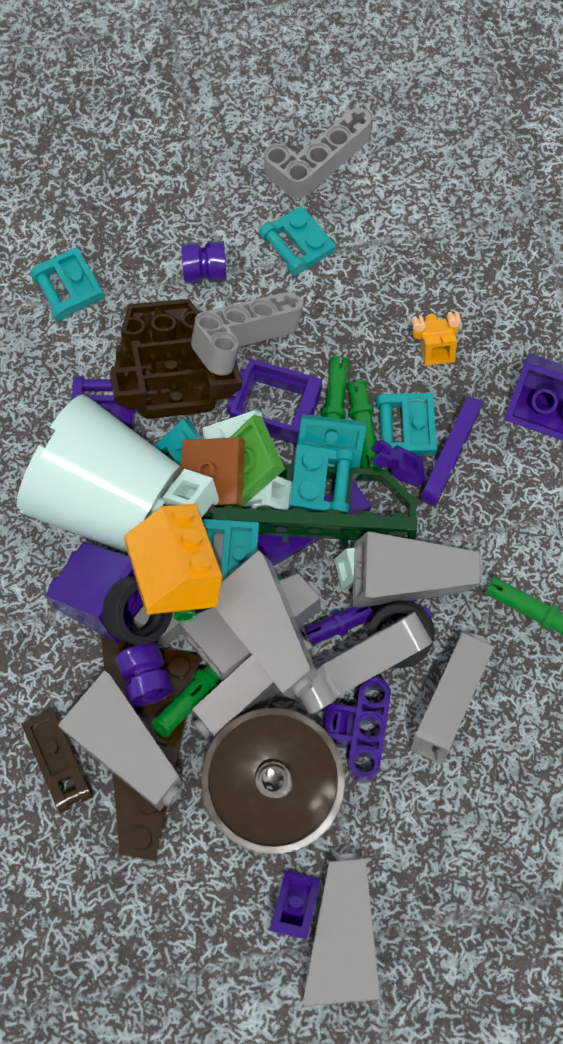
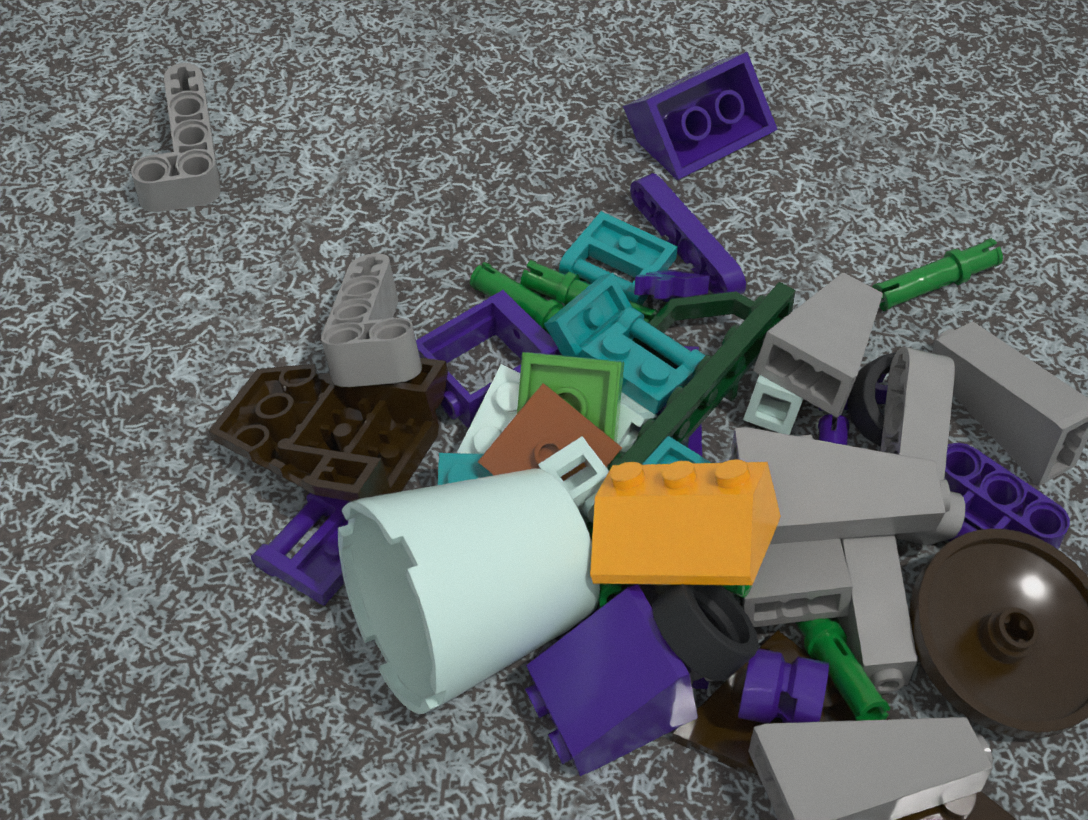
camera: 60 degrees left, 15 degrees down
(76, 279) = (100, 476): teal plate -> none
(204, 262) = (218, 327): dark purple wheel -> none
(304, 234) = (282, 221): teal plate -> none
(437, 337) = (533, 172): light orange piece -> none

